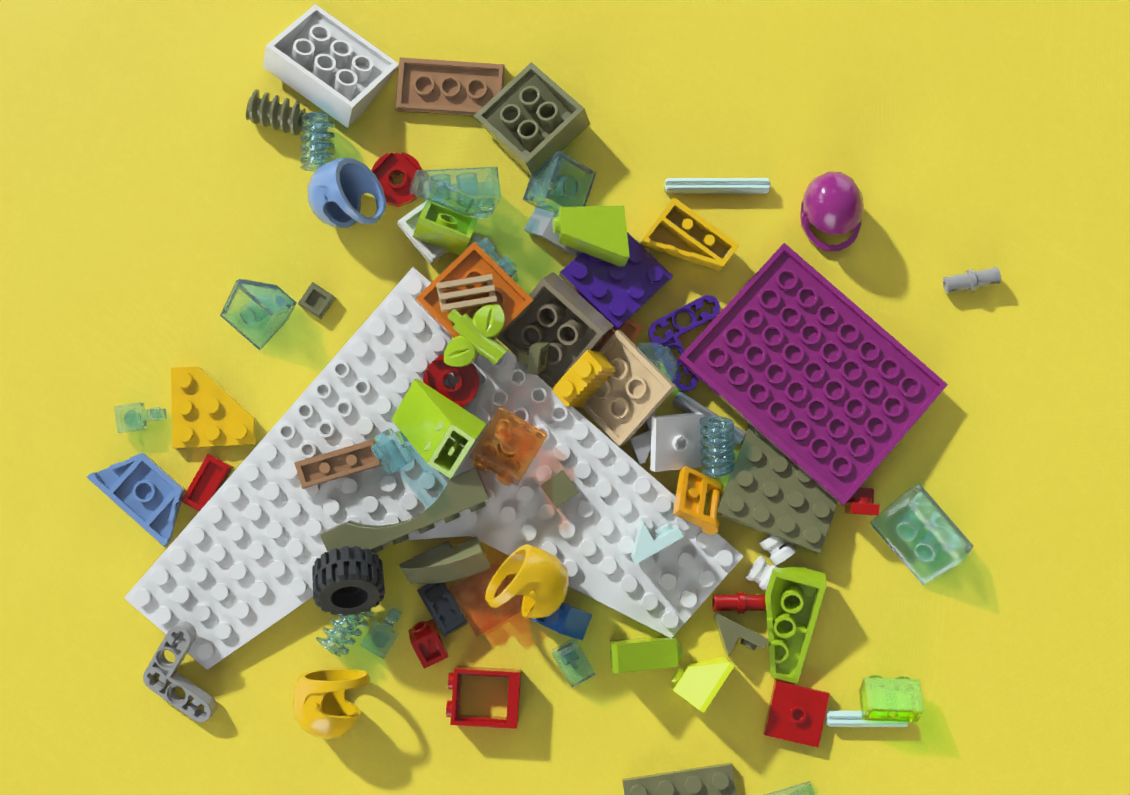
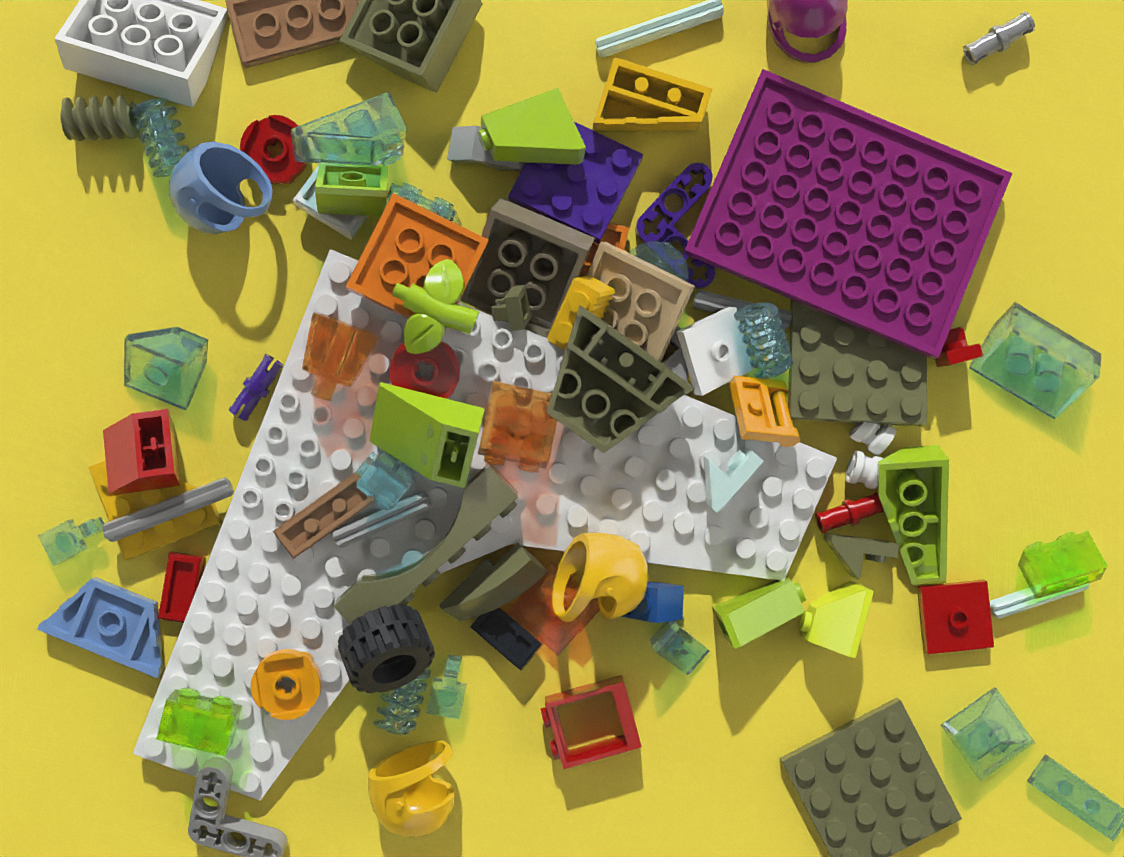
camera: 20 degrees left, 5 degrees up
(186, 589) = (199, 721): none -> clear neon green brick
(215, 370) = (141, 453): none -> red slope
(219, 420) = (168, 509): none -> light grey axle
(254, 569) = (274, 699): none -> light orange plate
(316, 300) = (232, 328): olive tile -> none
(319, 350) = (256, 387): none -> dark purple pin
(379, 482) = (381, 519): none -> light grey axle
(390, 345) = (336, 353): none -> clear orange torso
(427, 643) = (503, 683): red bracket -> none
(490, 289) = (398, 246): tan tile -> none
(559, 184) = (470, 88): clear light blue slope -> none
(559, 488) = (594, 459): olive tile -> none
(586, 438) = (609, 384): none -> olive wedge

